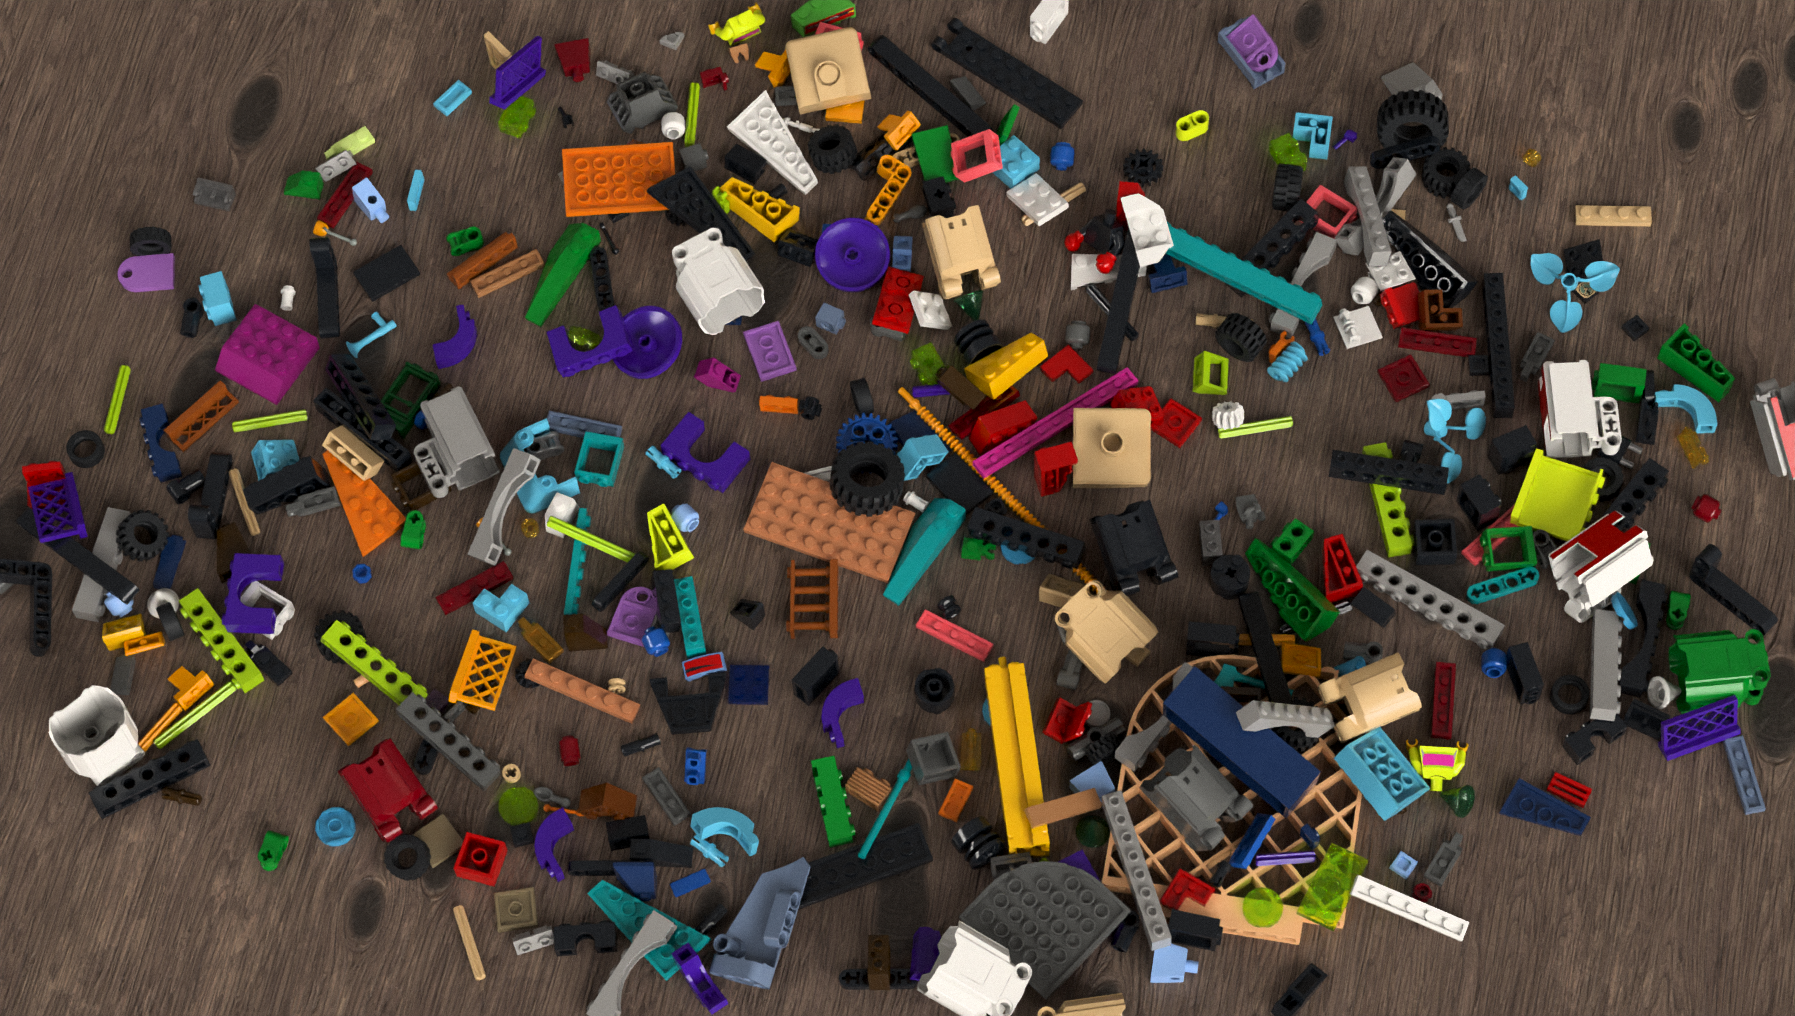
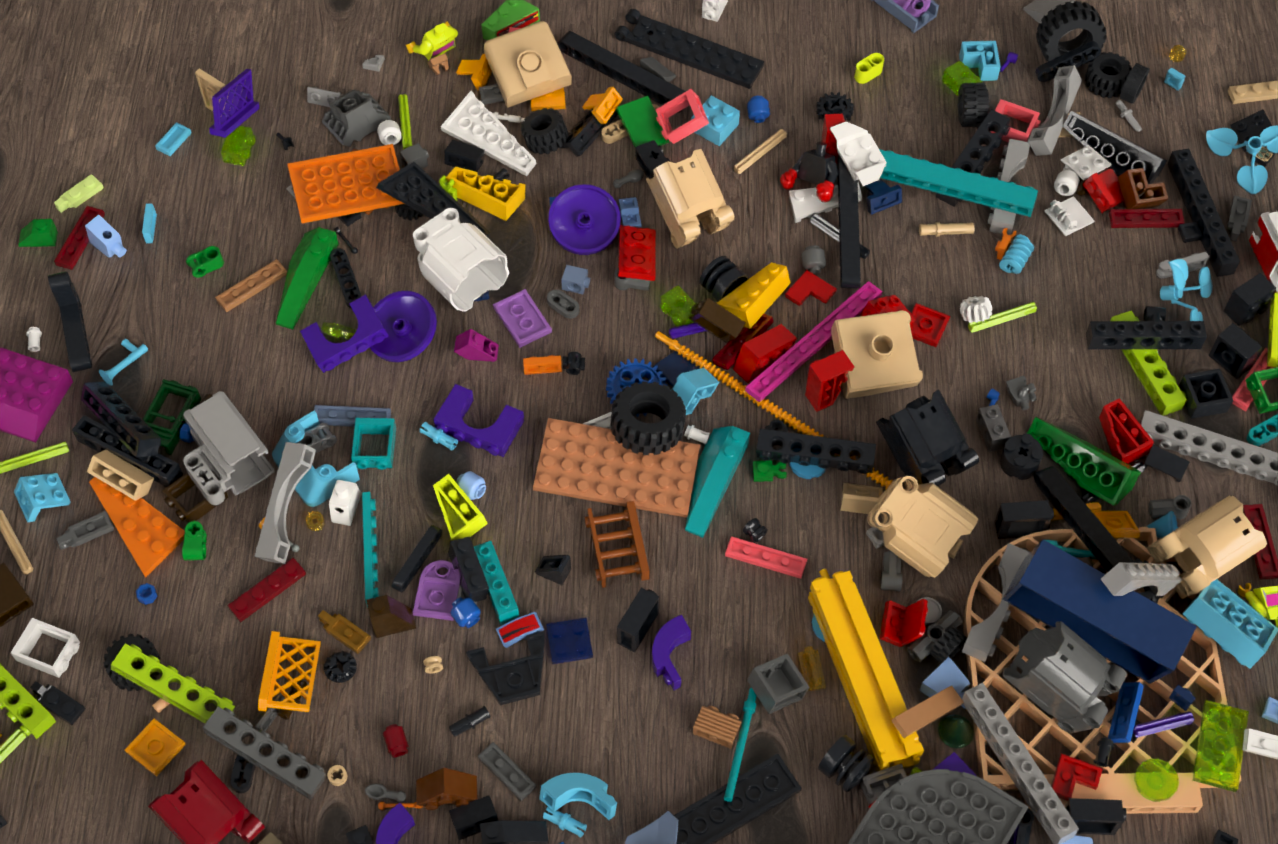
camera: 15 degrees left, 5 degrees down
(245, 570) = (19, 610): dark purple arch -> none
(286, 485) = (54, 517): black wedge -> none
(322, 229) = (58, 268): hinge -> none
(336, 165) = (67, 211): light grey hinge -> none
(386, 273) = (131, 302): black tile -> none
(437, 700) = (246, 711): plate -> none
(460, 346) = (214, 358): dark purple arch -> none
(482, 260) = (225, 276): dark orange fence -> none
(502, 610) = (298, 608): medium azure brick -> none
(518, 806) = (350, 809): clear neon green tile -> none
(574, 58) = (284, 89): dark red torso -> none
(582, 691) = (398, 675): nougat plate -> none
(590, 539) = (379, 520): lime axle -> none
(695, 766) = (532, 734): blue hips -> none
(714, 76) = (419, 87): dark red bracket -> none
(797, 247) = (529, 222): black bracket -> none
(832, 802) = (683, 746): green wedge -> none
(861, 396) = (622, 344): black tyre -> none
(894, 181) = (610, 146): light orange beam -> none
(926, 694) = (761, 625): black brick -> none
(930, 310) = (670, 257): white plate -> none
(955, 800) = (809, 723): orange plate -> none
(959, 483) = (733, 409): black tile -> none
(971, 303) = (706, 246): clear green hat -> none
(1007, 124) = (703, 86): green tile -> none
(1037, 199) = (745, 148): white plate -> none
(1202, 374) = (940, 277): lime tile -> none
(1240, 337) = (969, 237): black tyre -> none
(1295, 543) = (1071, 416): green brick -> none
(1317, 336) = (1035, 229): blue pin -> none
(1374, 235) = (1068, 137): light grey arch -> none
(1403, 378) = (1124, 254): dark red tile -> none

